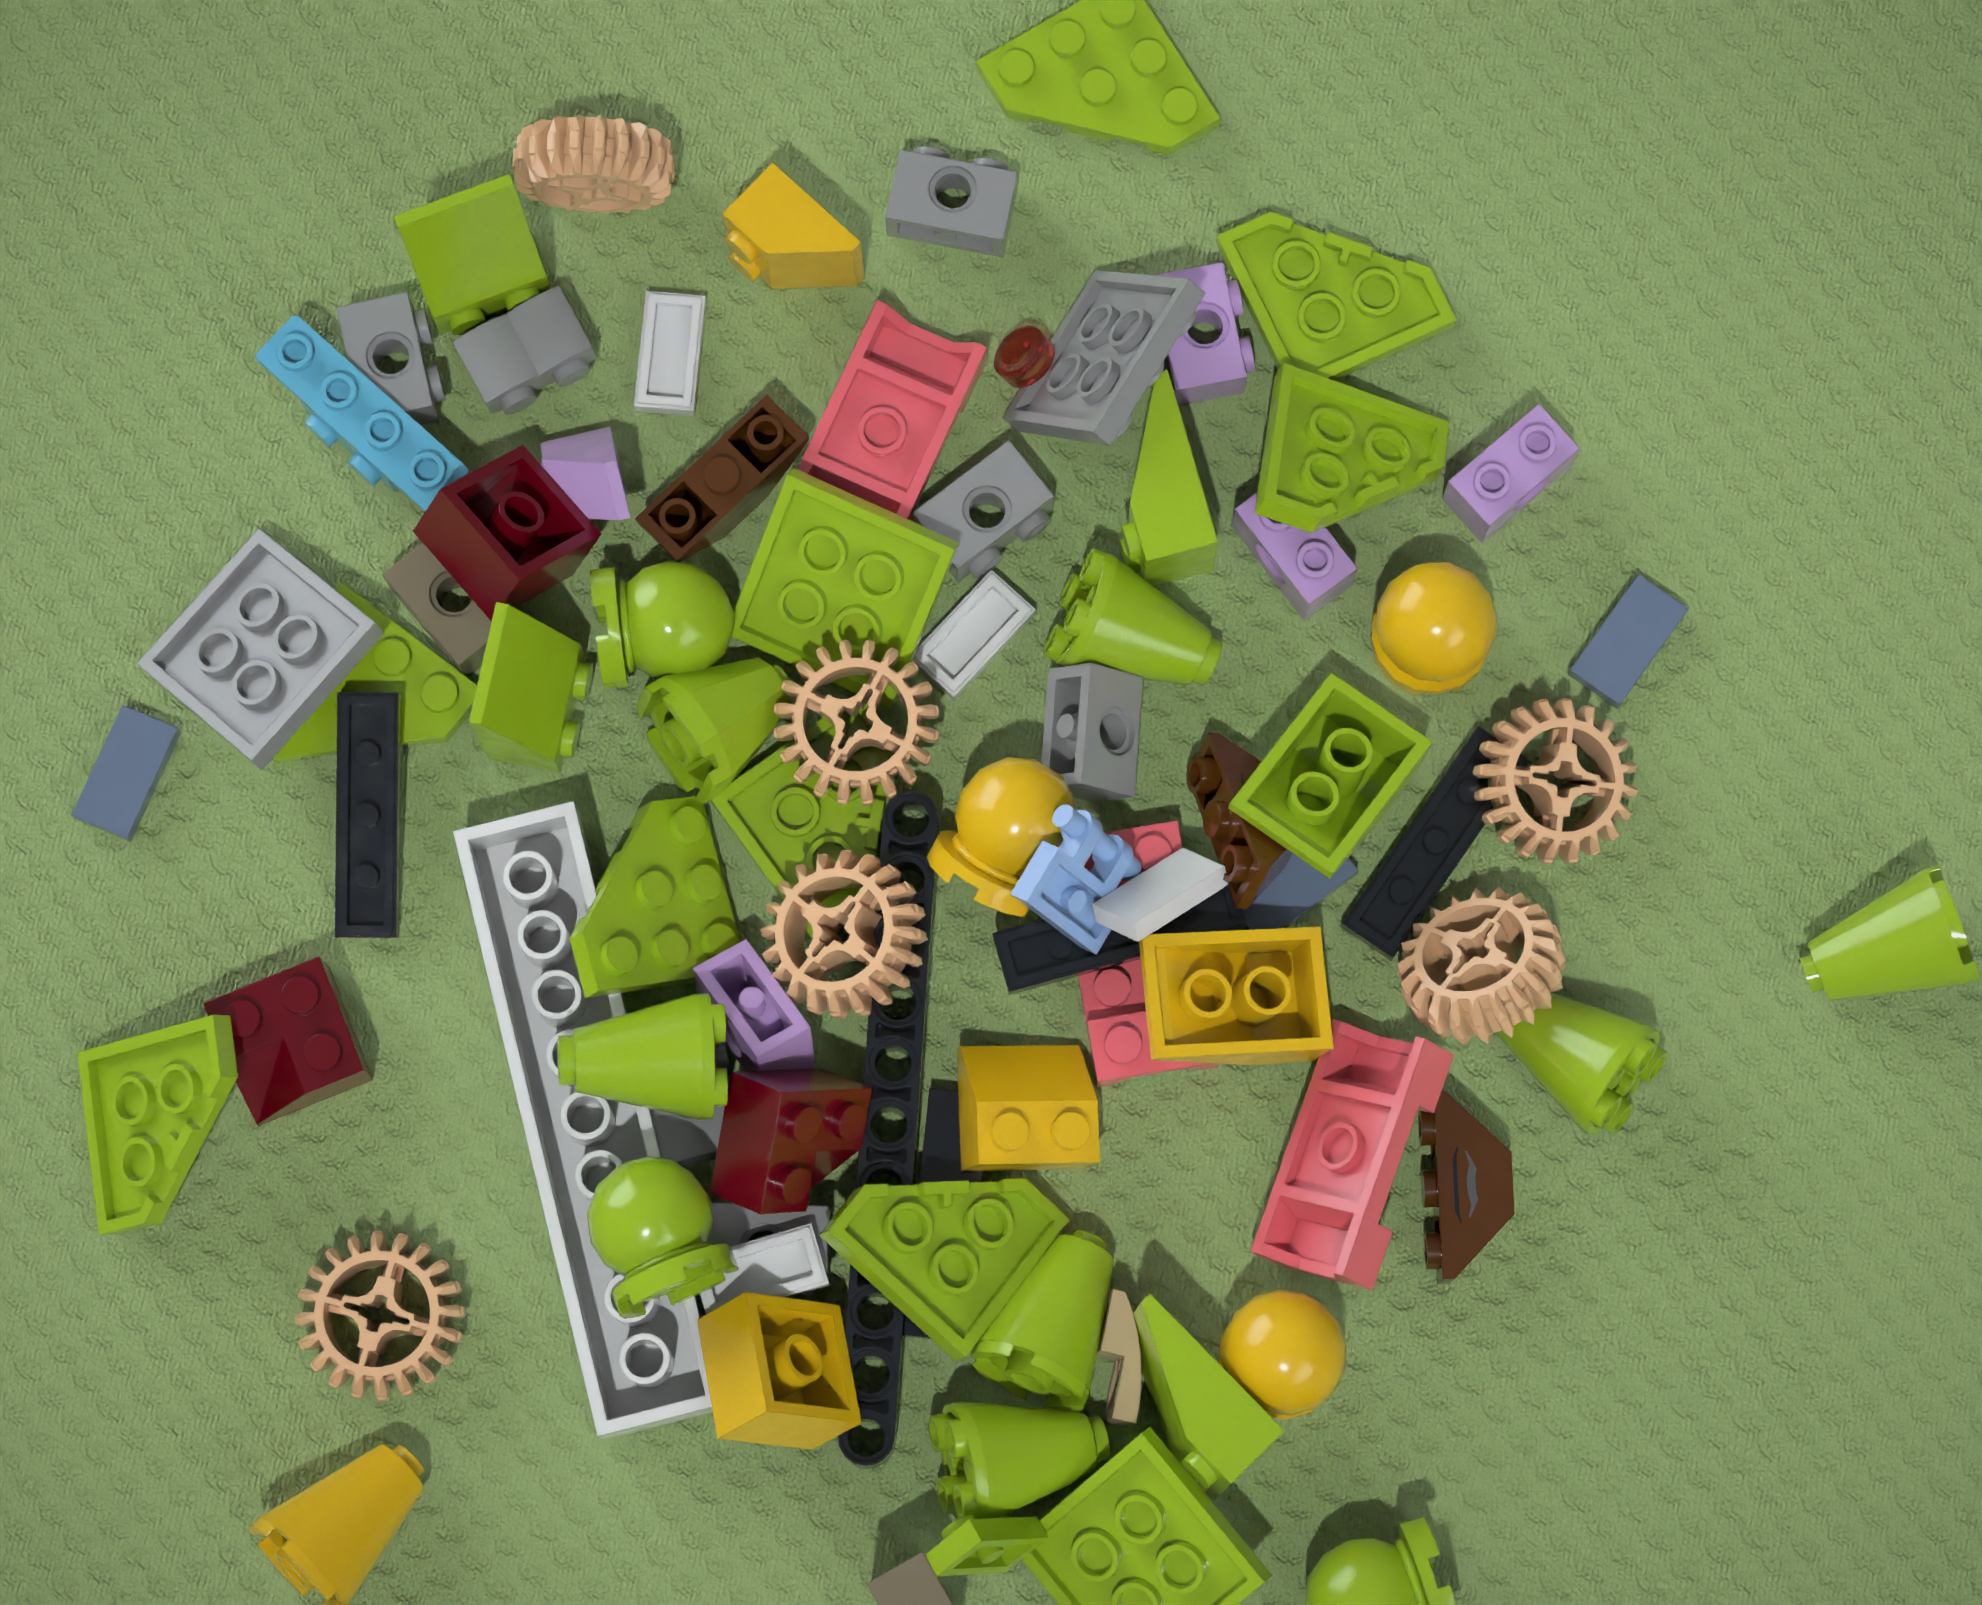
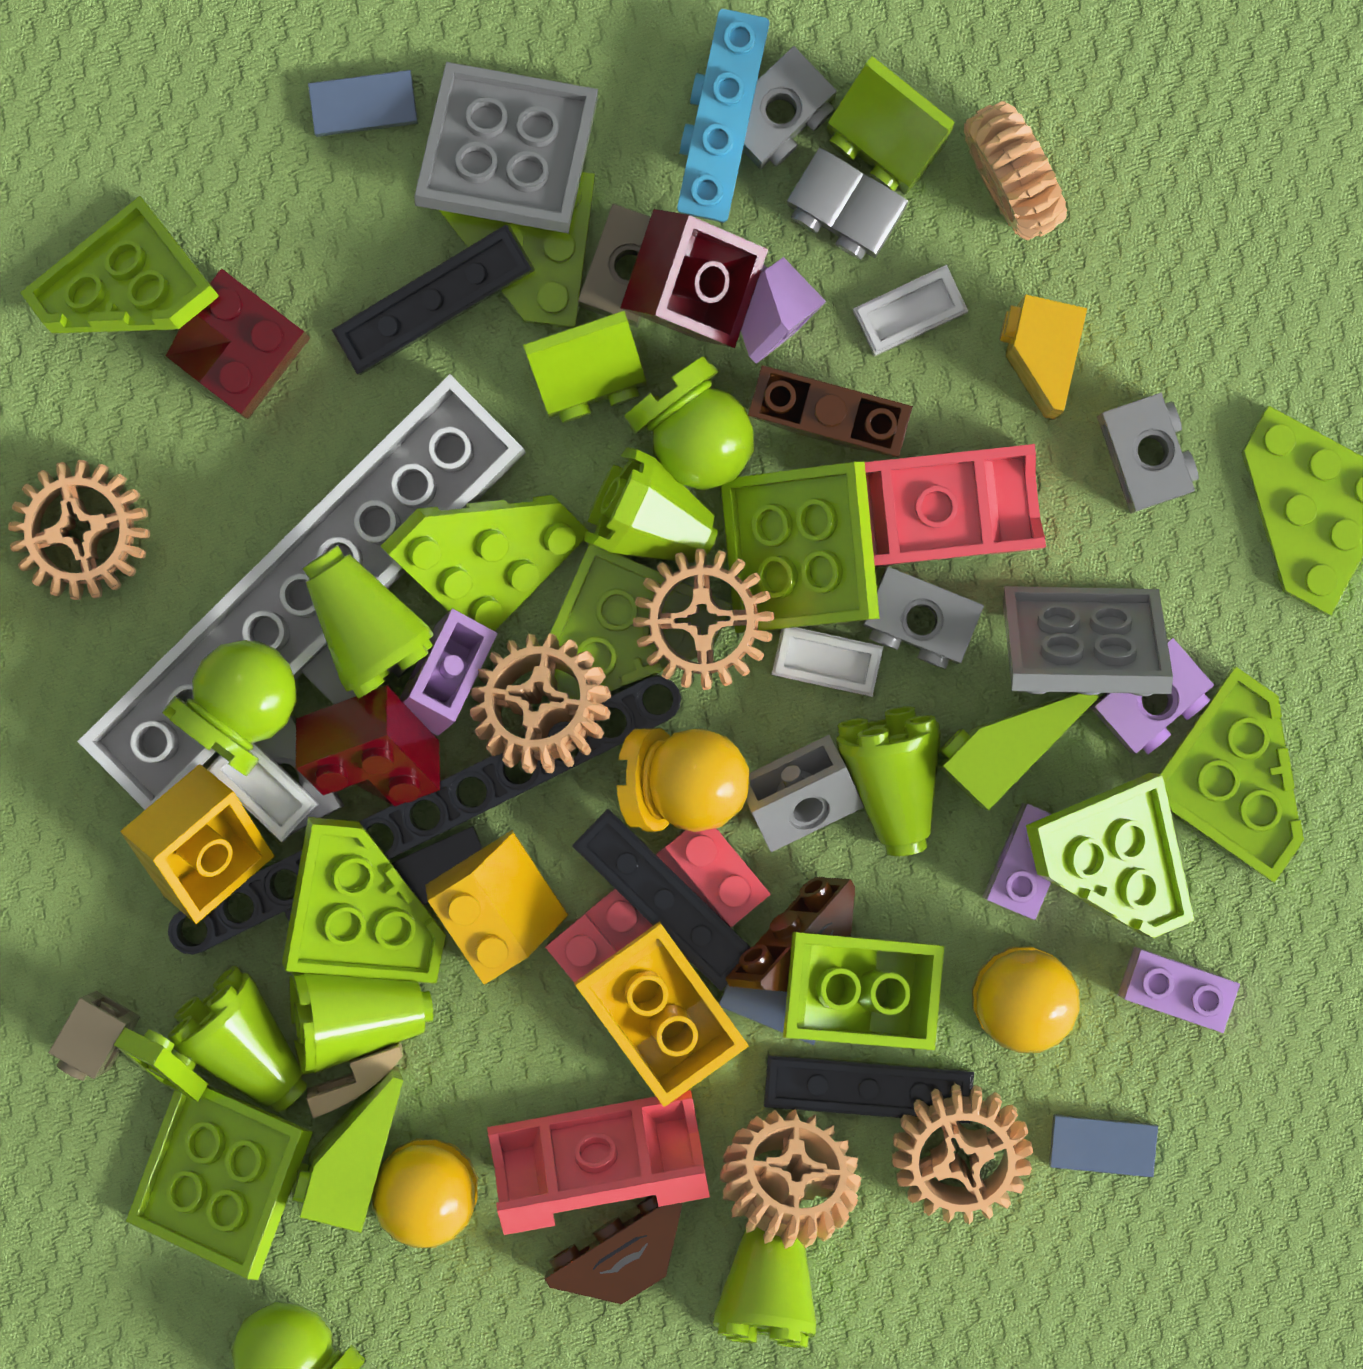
camera: 60 degrees right, 10 degrees up
(1024, 357) = (1058, 576): clear red tile -> none
(1060, 886) = (660, 850): light blue plate -> none
(1160, 894) = (701, 917): white tile -> none

